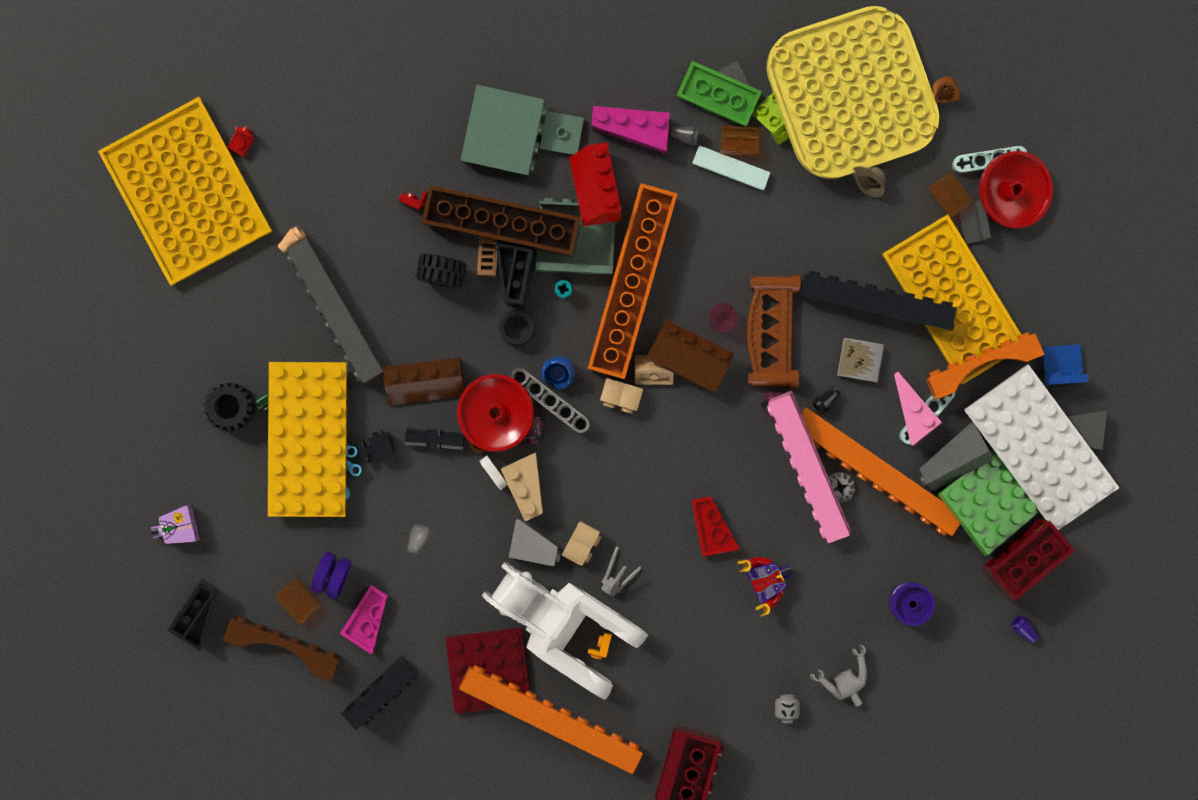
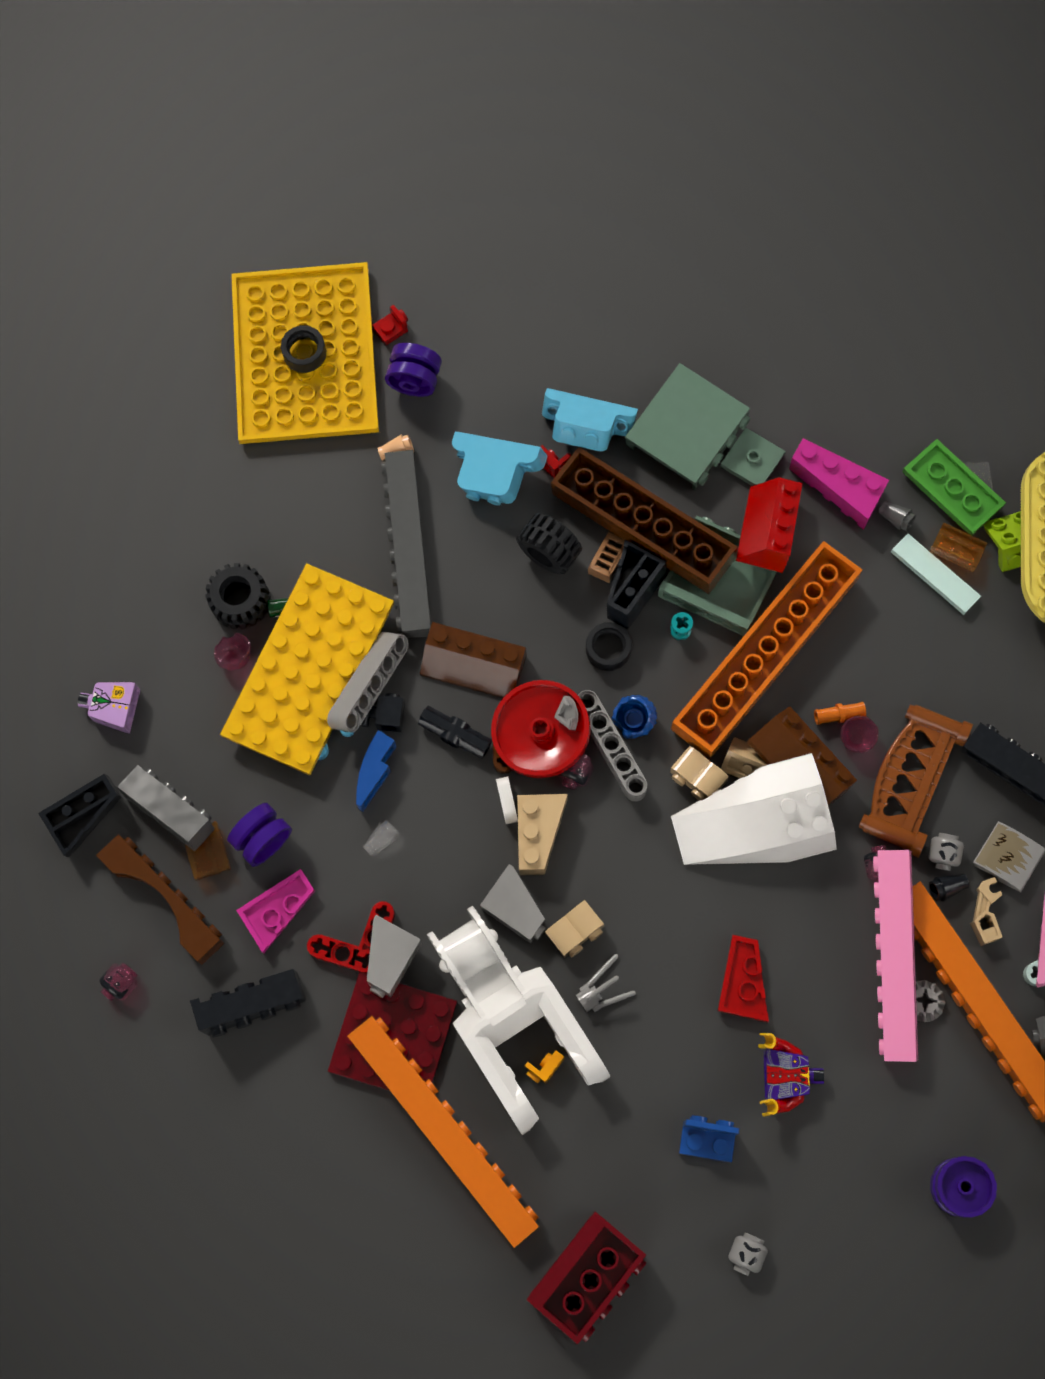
camera: 30 degrees right, 15 degrees down
(200, 192) = (299, 333): none -> black tyre
(246, 450) = (233, 652): none -> clear pink hair
(254, 584) = (166, 807): none -> brick
(276, 174) = (413, 369): none -> dark purple wheel
(281, 717) = (118, 982): none -> clear pink head
(356, 431) = (367, 682): none -> light grey beam
(373, 226) = (494, 466): none -> medium azure brick
(388, 491) = (373, 769): none -> blue slope
(425, 159) = (586, 420): none -> medium azure brick
(441, 618) = (363, 948): none -> red beam
(461, 620) = (389, 956): none -> light grey slope
(510, 394) = (567, 713): none -> light grey tile
(677, 410) = (760, 818): none -> white wedge
(703, 305) = (839, 713): none -> orange pin
(731, 646) = (708, 1139): none -> blue bracket
(815, 376) = (946, 851): none -> light grey head
(847, 682) = (838, 1255): light grey piece -> none
(855, 398) = (984, 900): none -> tan piece

